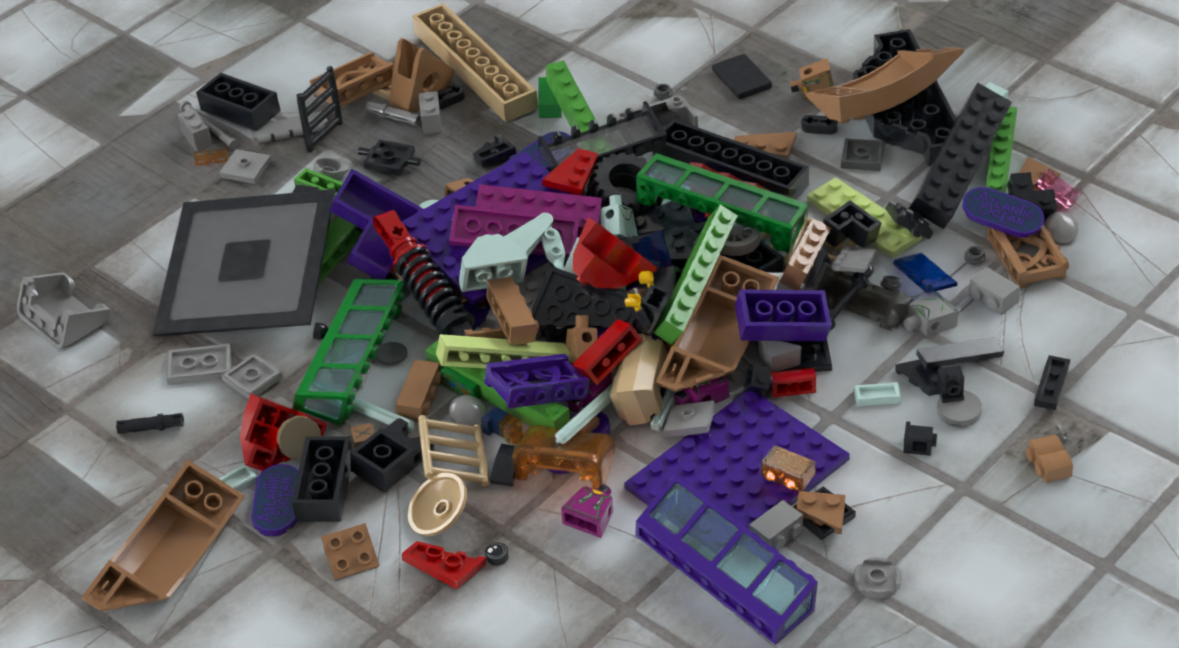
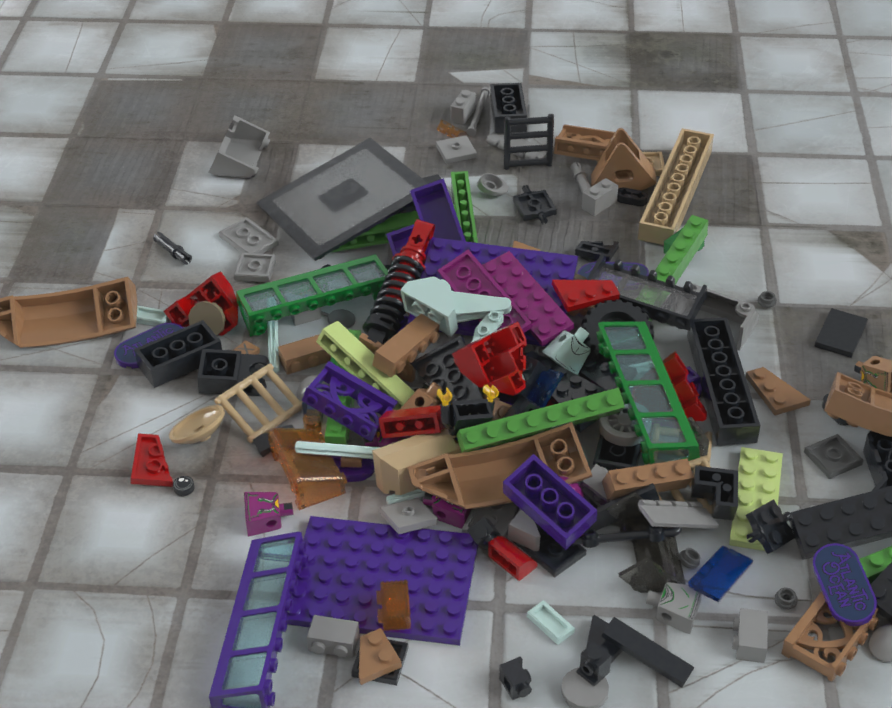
camera: 50 degrees right, 0 degrees up
(350, 551) = (125, 407): medium nougat hinge -> none

